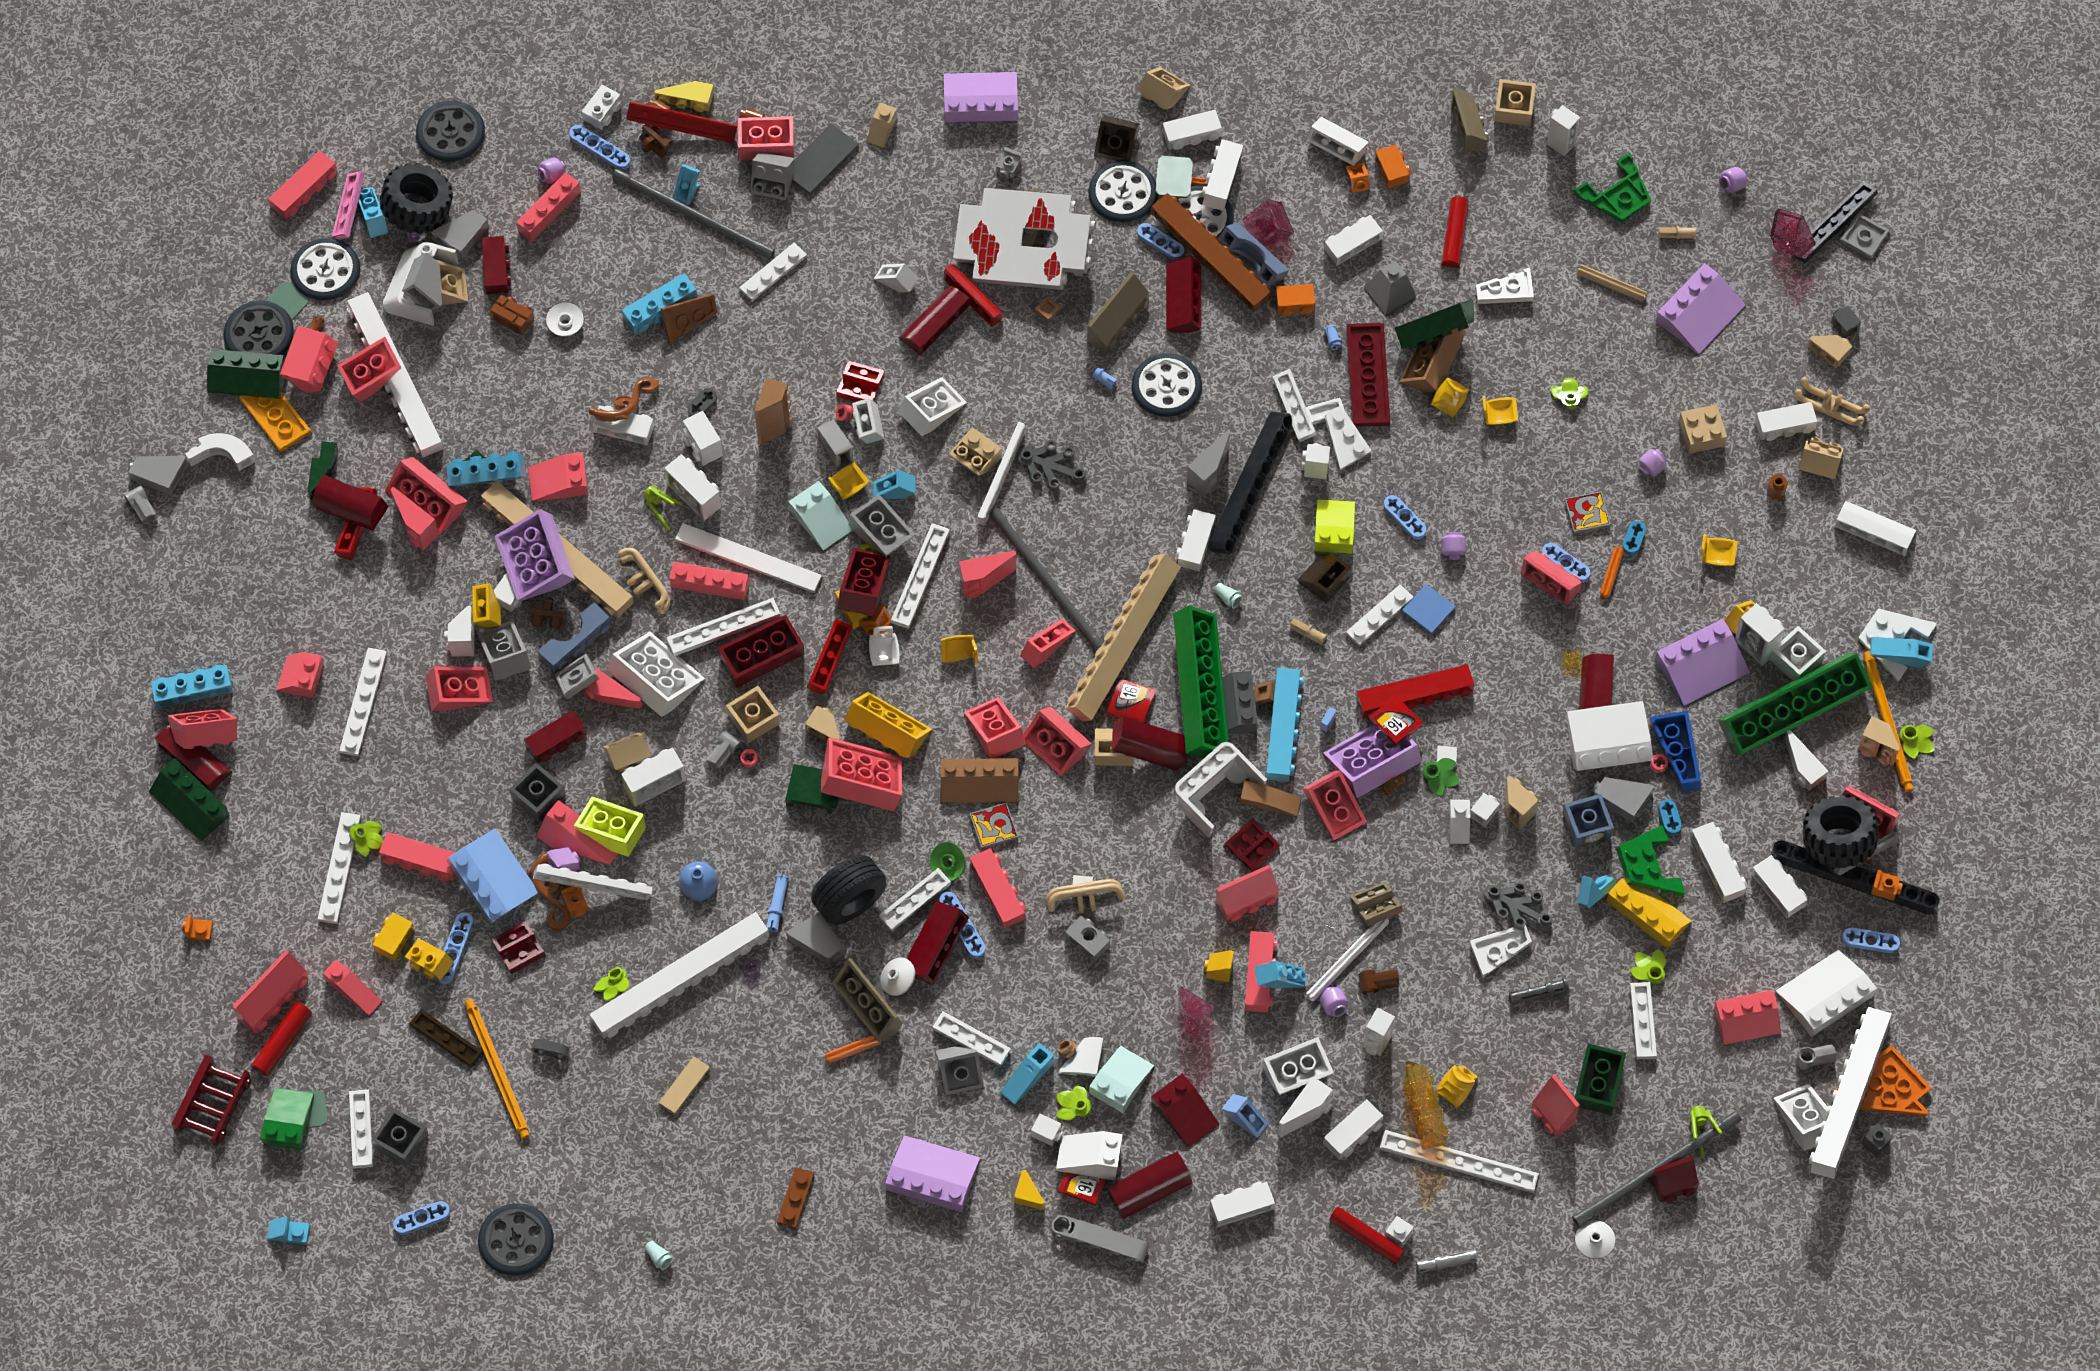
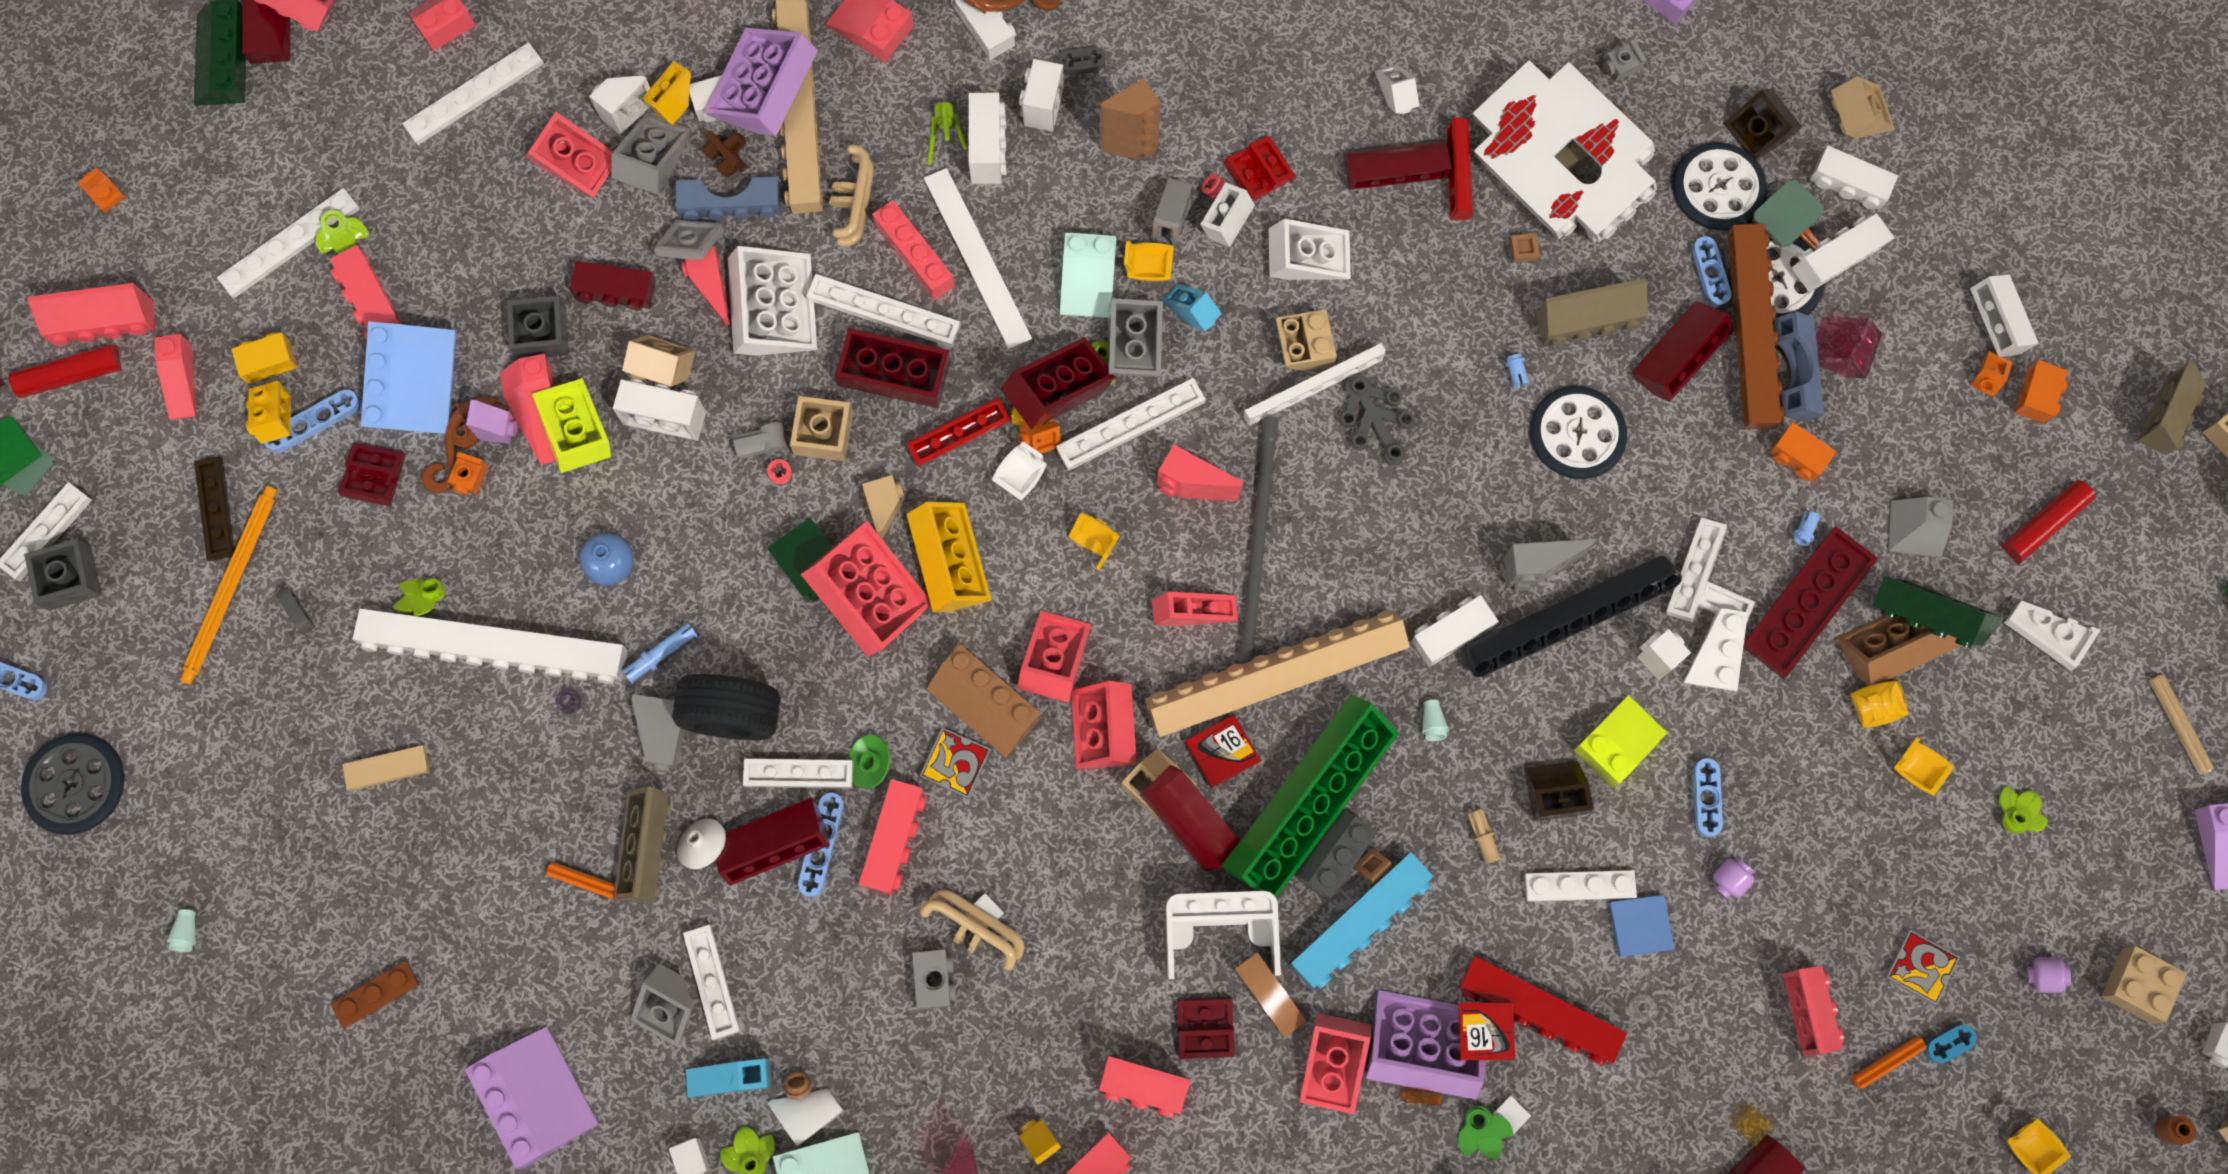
camera: 40 degrees right, 10 degrees up
(598, 883) = (486, 460): white plate -> none
(1328, 719) = (1415, 958): light blue tile -> none
(1353, 240) = (1925, 438): white brick -> none
(1564, 555) = (1848, 984): light blue beam -> none

